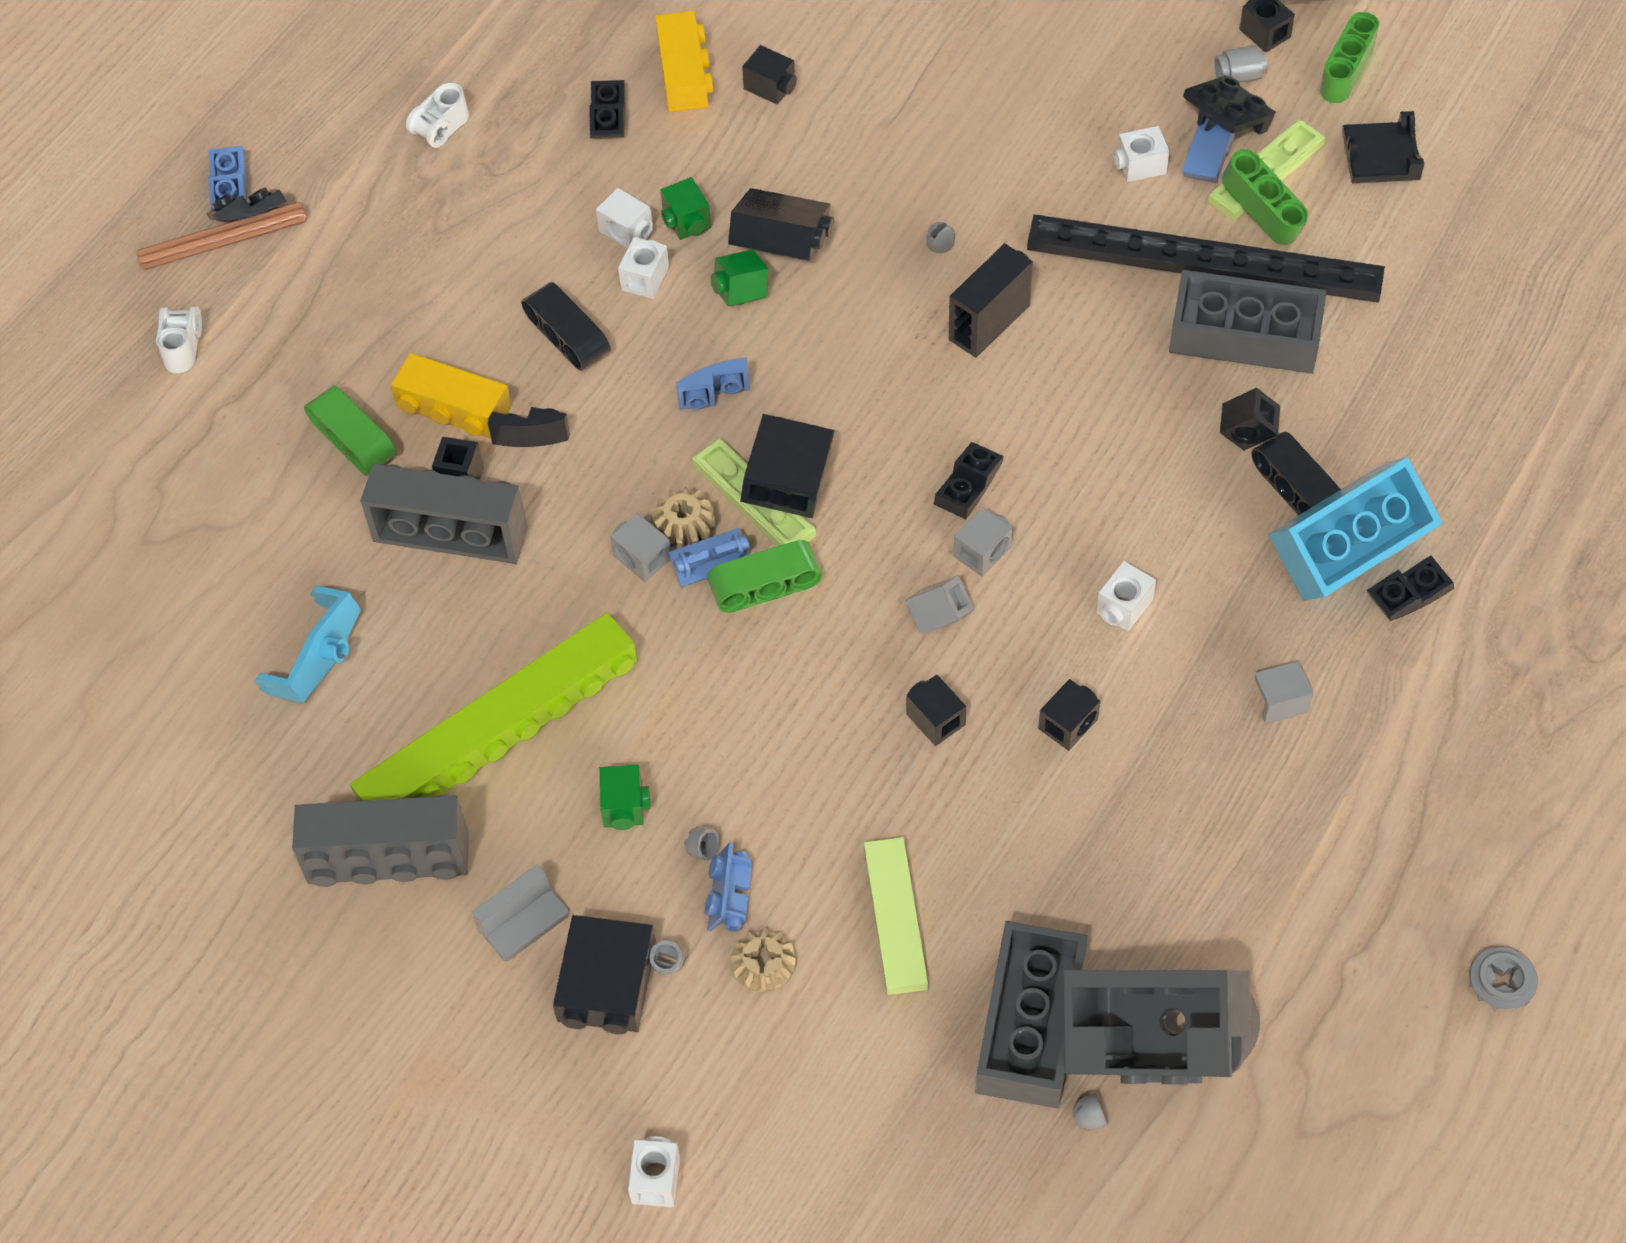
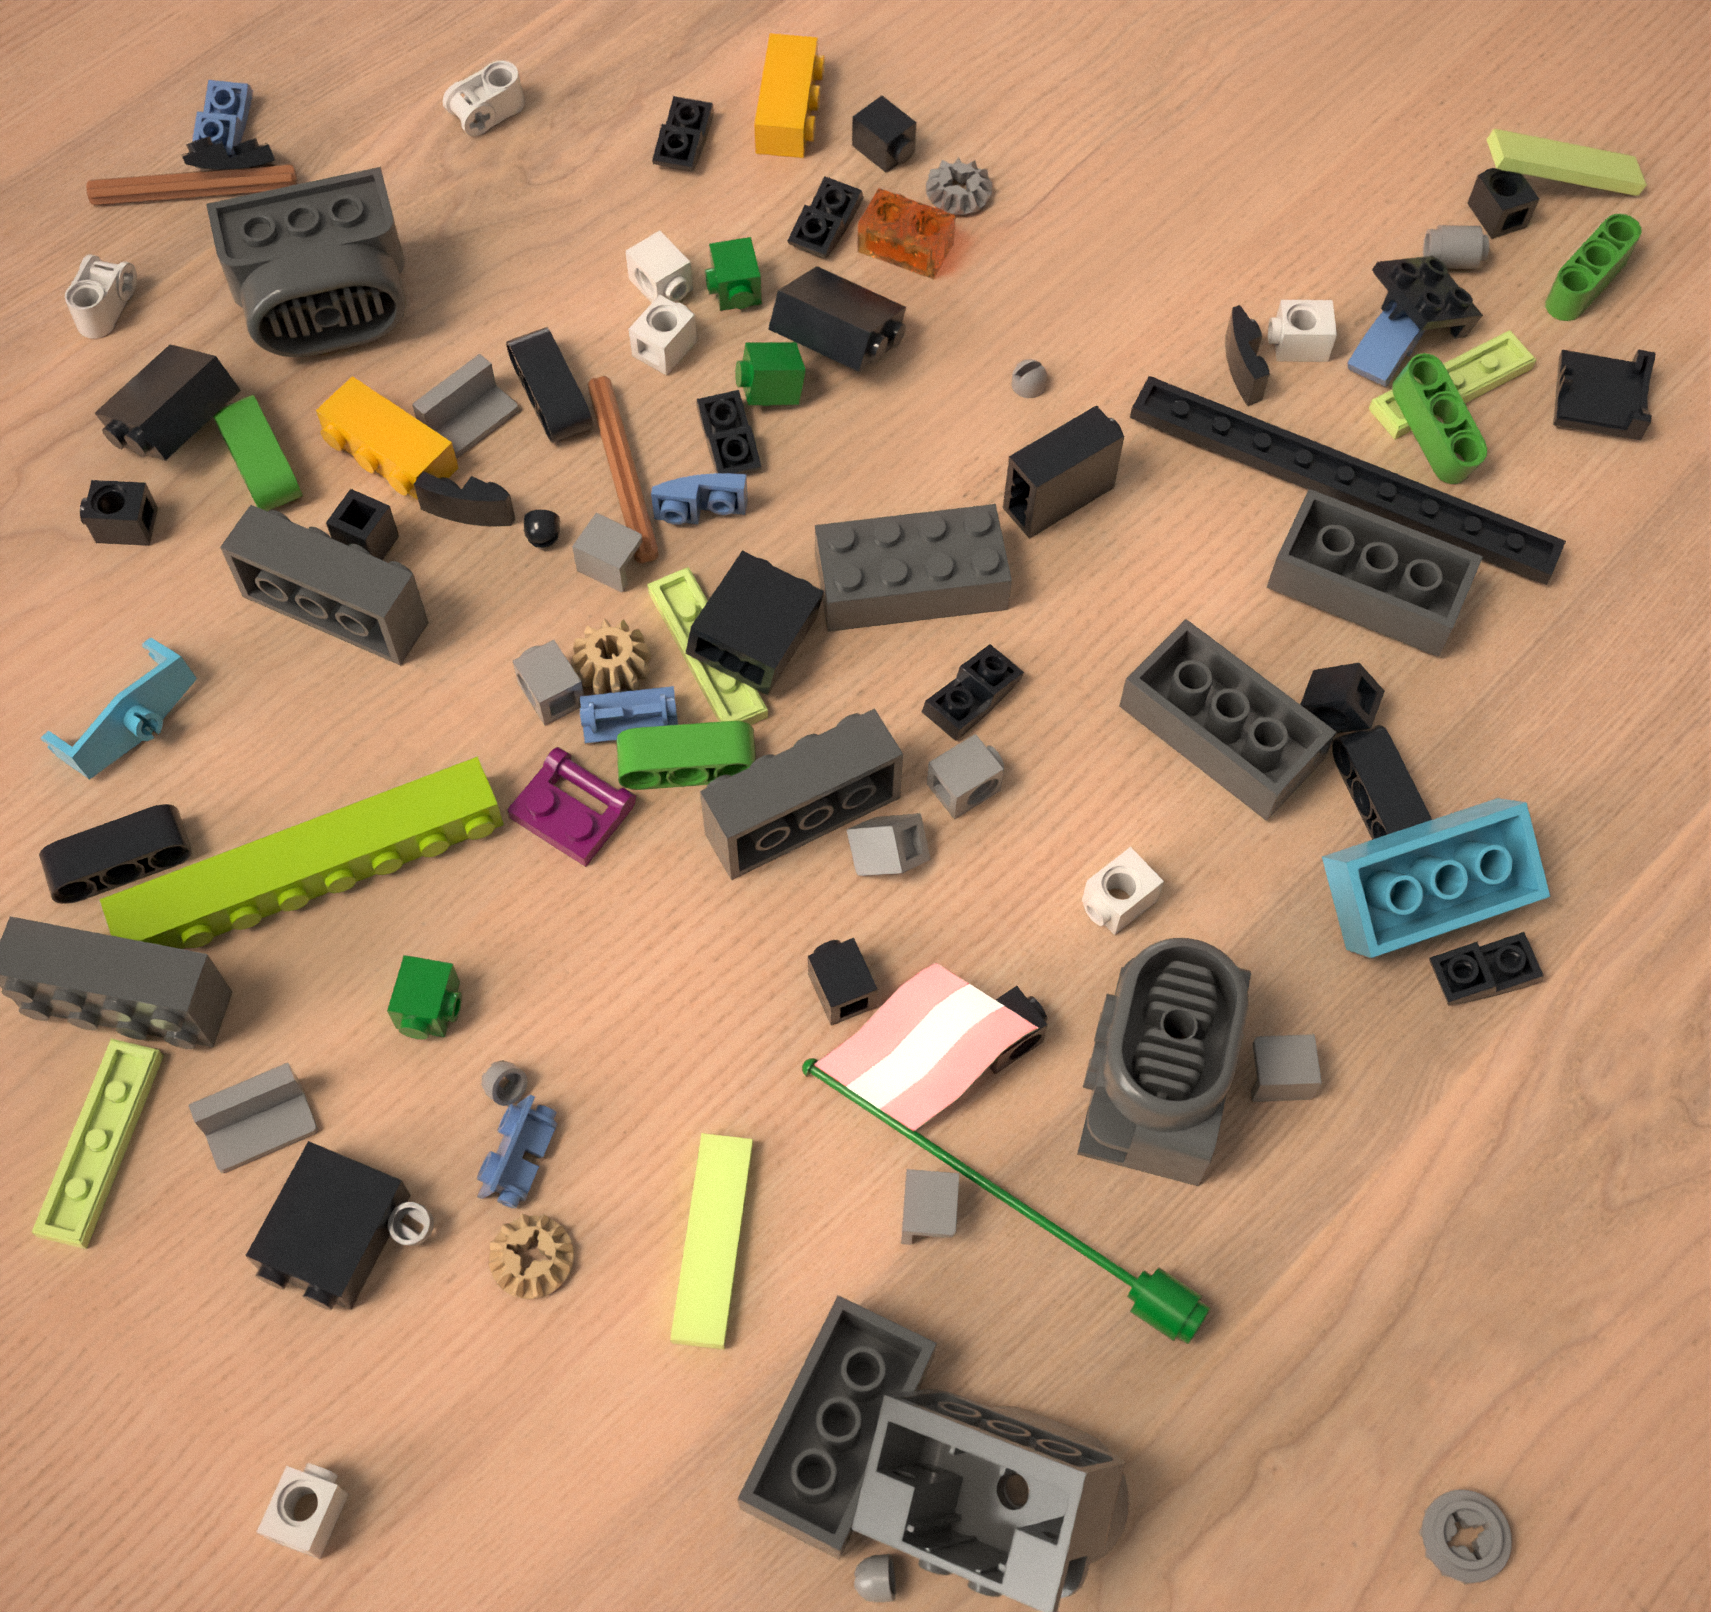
camera: 10 degrees right, 5 degrees up
(268, 405) = (167, 402): none -> black brick
(268, 499) = (119, 512): none -> black brick
(344, 751) = (115, 853): none -> black beam
(354, 272) = (313, 263): none -> dark grey brick
(404, 962) = (98, 1144): none -> yellowish green tile
(505, 355) = (466, 405): none -> light grey panel
(595, 435) = (542, 528): none -> black hinge
(644, 377) = (622, 466): none -> nougat axle
(654, 440) = (605, 551): none -> light grey panel
(685, 646) = (563, 819): none -> magenta plate
(717, 331) = (728, 433): none -> black slope
(742, 149) = (826, 218): none -> black slope
(810, 147) = (906, 233): none -> clear orange brick
(841, 112) = (954, 198): none -> light grey gear
(864, 580) = (802, 792): none -> dark grey brick
(895, 398) = (912, 567): none -> dark grey brick
(1015, 746) = (924, 1057): none -> flag
(1049, 848) = (929, 1204): none -> light grey panel
(1097, 176) = (1242, 345): none -> black slope
(1167, 453) = (1226, 719): none -> dark grey brick
(1195, 703) = (1160, 1096): none -> dark grey brick

